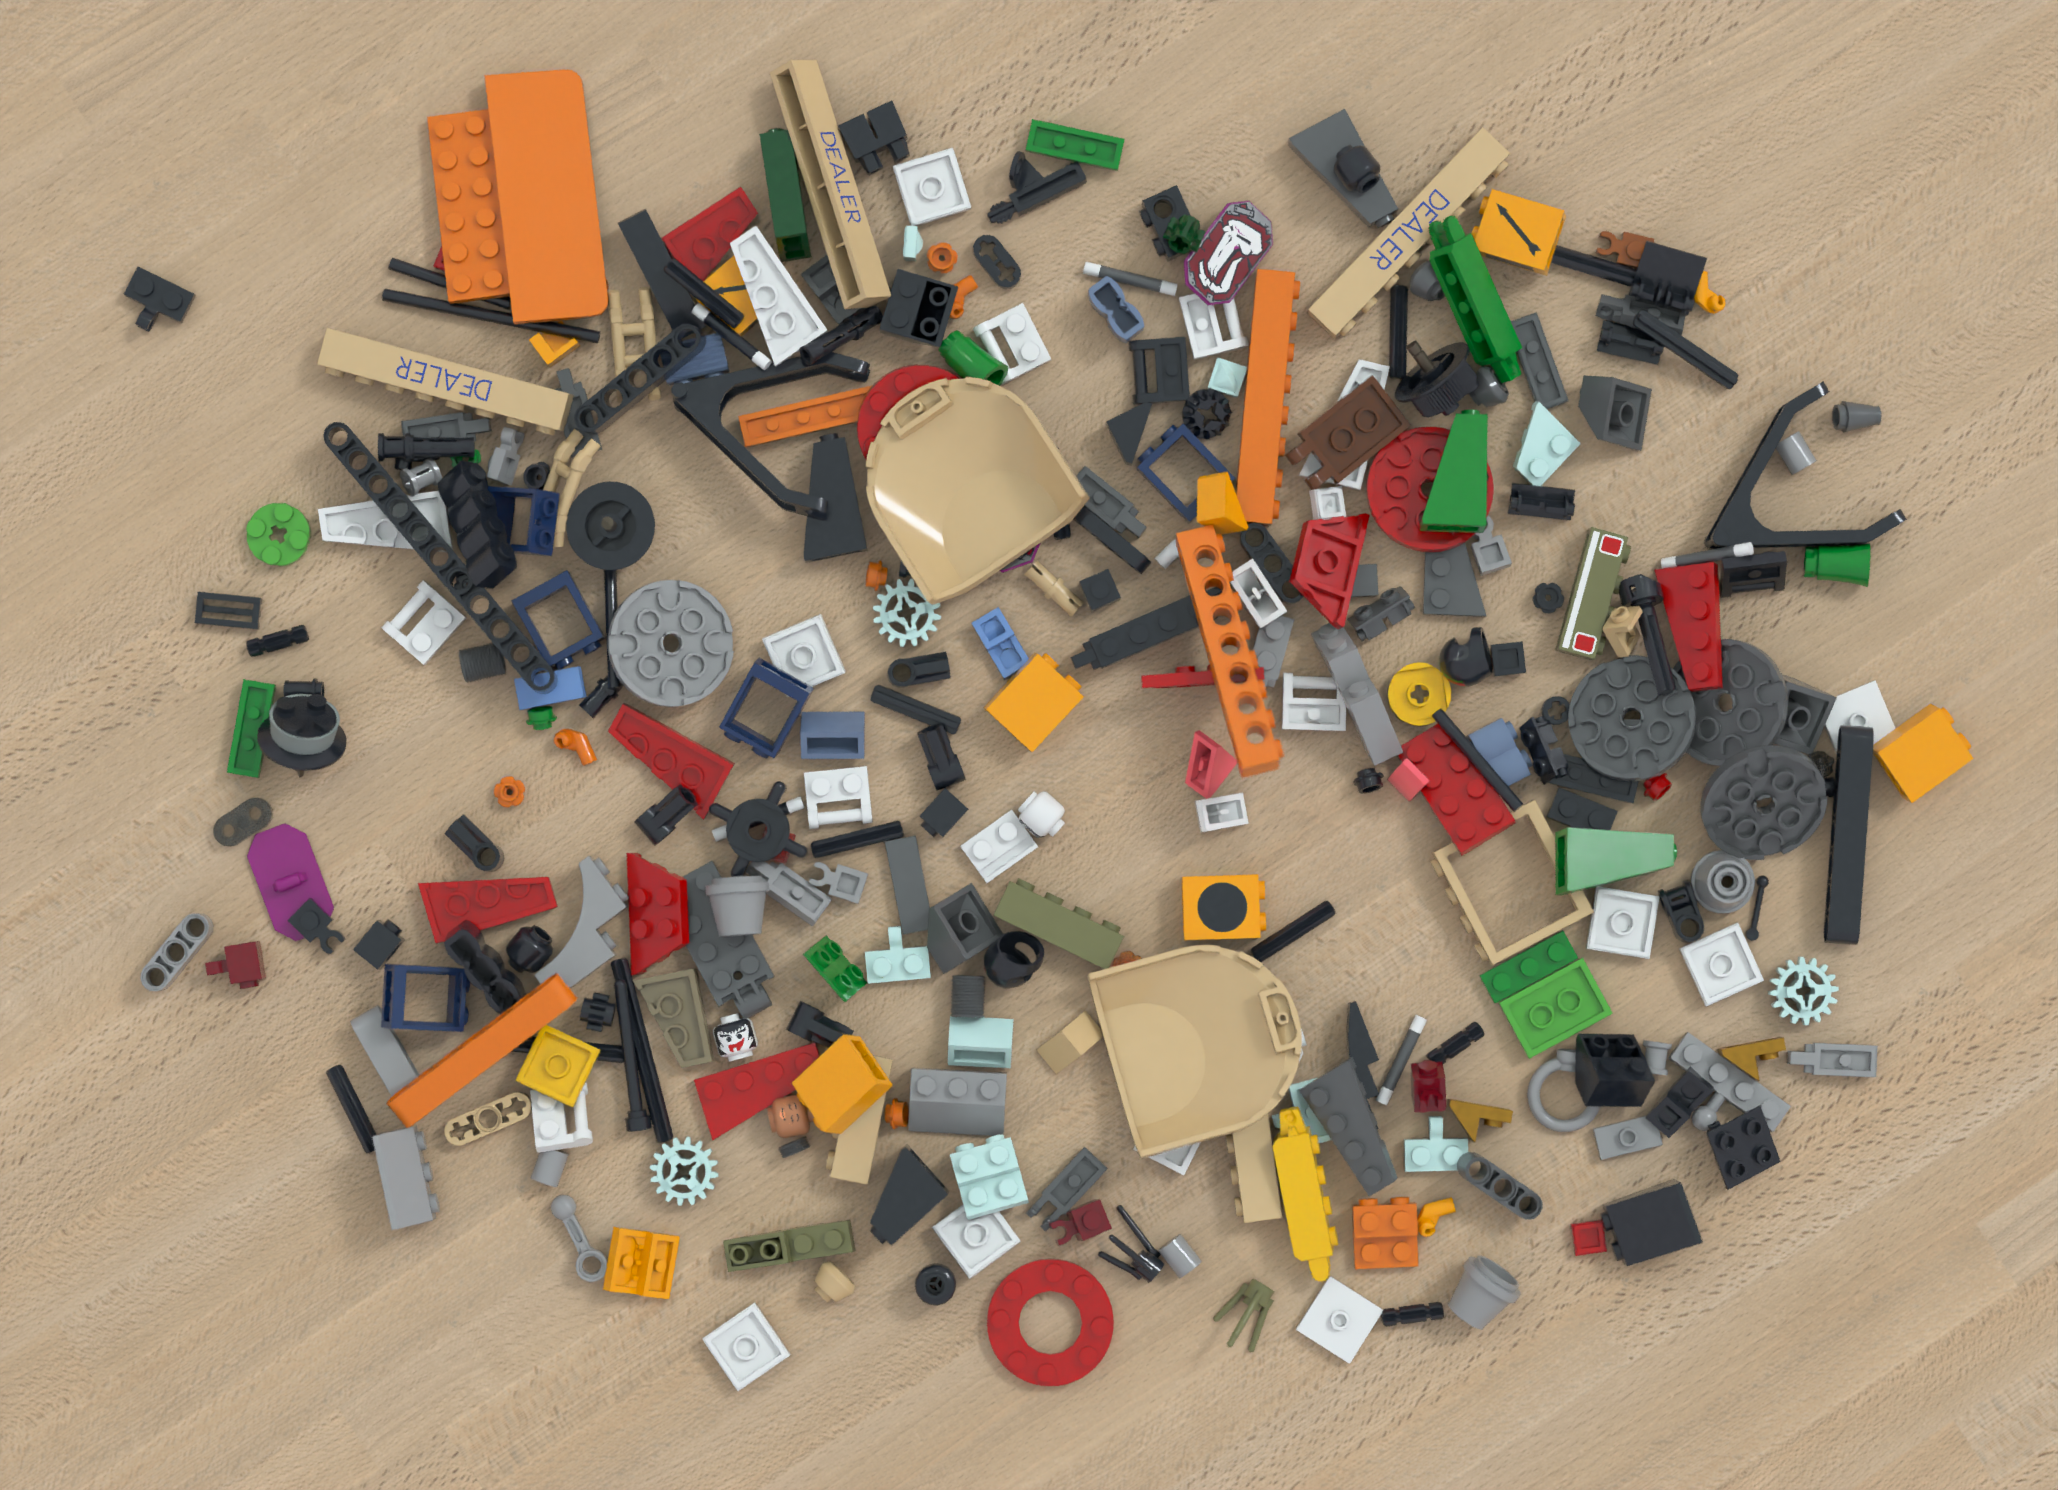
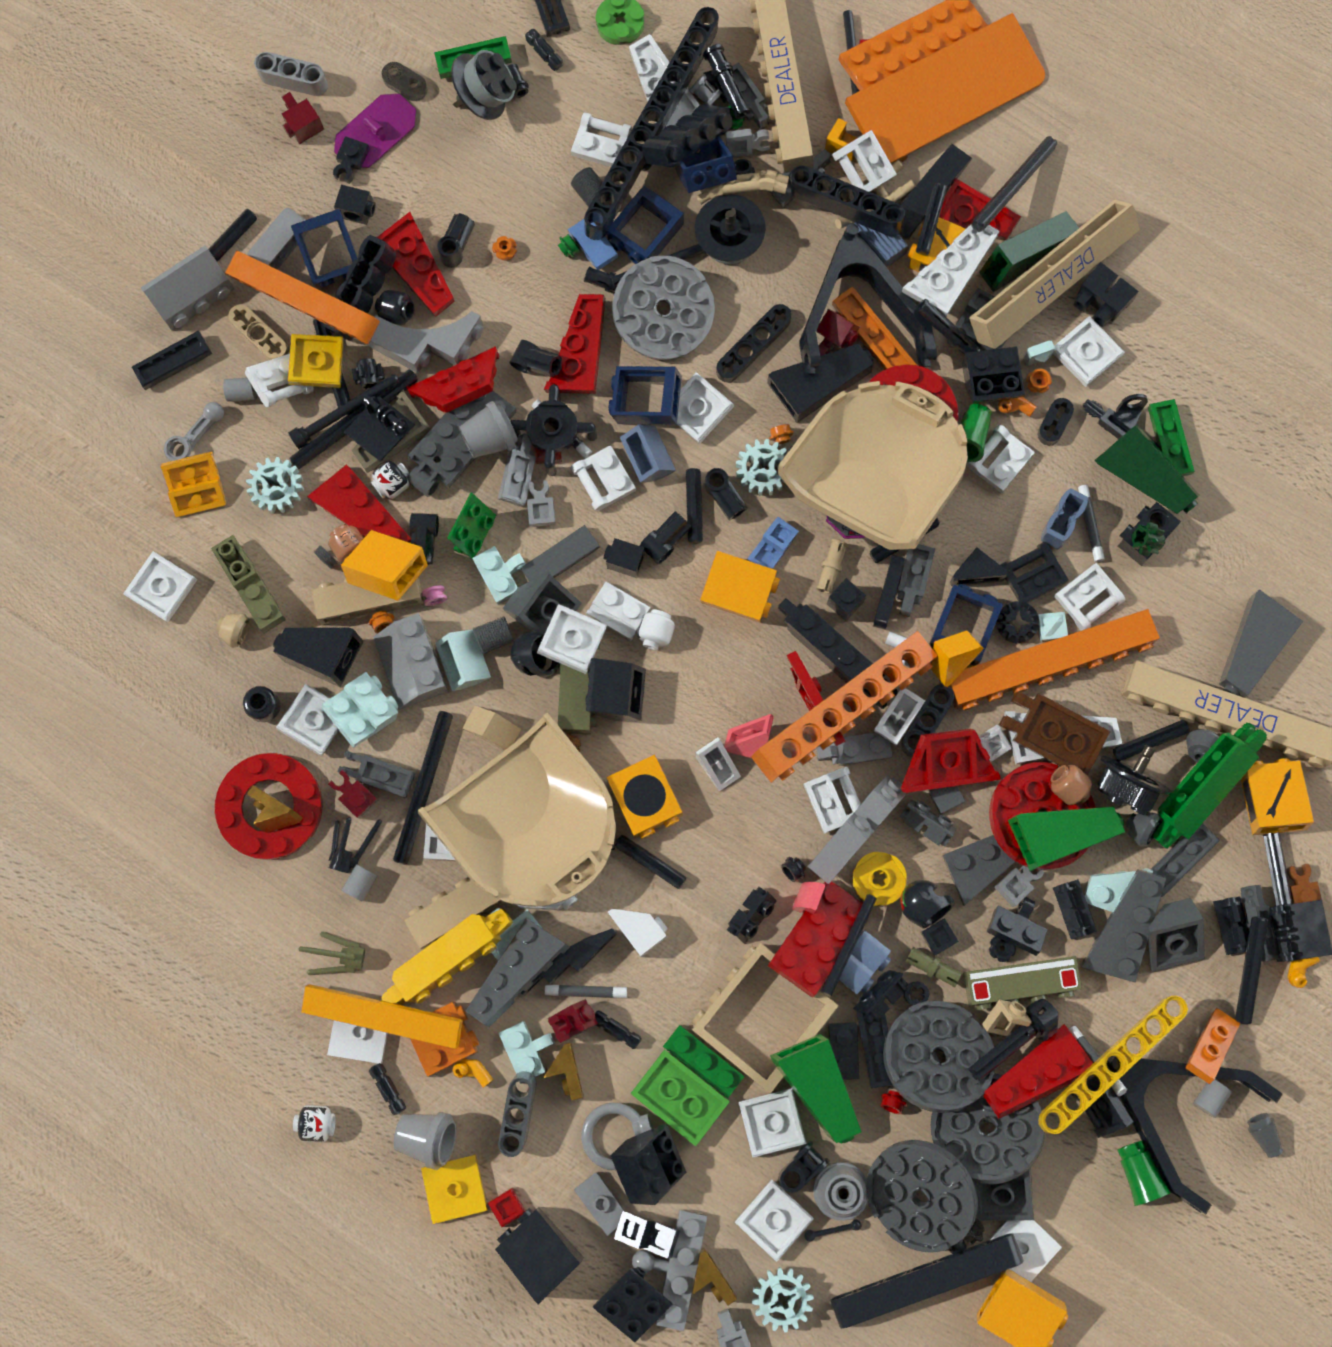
camera: 75 degrees right, 10 degrees down
(478, 1231) = (171, 360): none -> black plate
(488, 315) = (839, 77): black piece -> none
(576, 742) = (562, 278): orange arm -> none
(597, 327) = (870, 158): none -> white plate
(671, 1025) = (379, 427): none -> black hinge
(702, 177) = (1013, 185): none -> black axle
(731, 336) = (909, 252): black bar -> none
(750, 558) = (750, 340): none -> black beam
(787, 459) = (836, 331): none -> dark red brick
(857, 839) = (577, 505): black axle -> none
(893, 1043) = (434, 595): none -> bright pink bush
(1017, 912) = (572, 639): none -> white plate
(1066, 1316) = (273, 813): none -> pearl gold slope
(1093, 888) = (615, 690): none -> black slope
(1103, 1144) = (423, 787): none -> black axle
(1104, 190) = (1146, 468): none -> dark green slope
(1228, 253) = (1148, 583): shield -> none
(1336, 1287) = (382, 1016): none -> light orange tile
(1357, 168) = (1264, 647): black head -> none
(1362, 974) = (640, 929): none -> white slope
(1394, 836) = (745, 925): none -> black hinge
(1412, 445) = (1071, 784): none -> nougat head
(1416, 1405) = (314, 1124): none -> white head
(1535, 573) = (1017, 928): none -> black plate
(1536, 679) = (934, 967): none -> olive pin
(1547, 1284) = (454, 1189): none -> yellow plate
(1594, 465) = (1125, 936): none -> dark grey wing
(1656, 1056) = (676, 1198): light grey bush -> none
(1718, 561) = (1100, 1069): none -> yellow beam
(1744, 429) = (1212, 1046): none -> orange plate

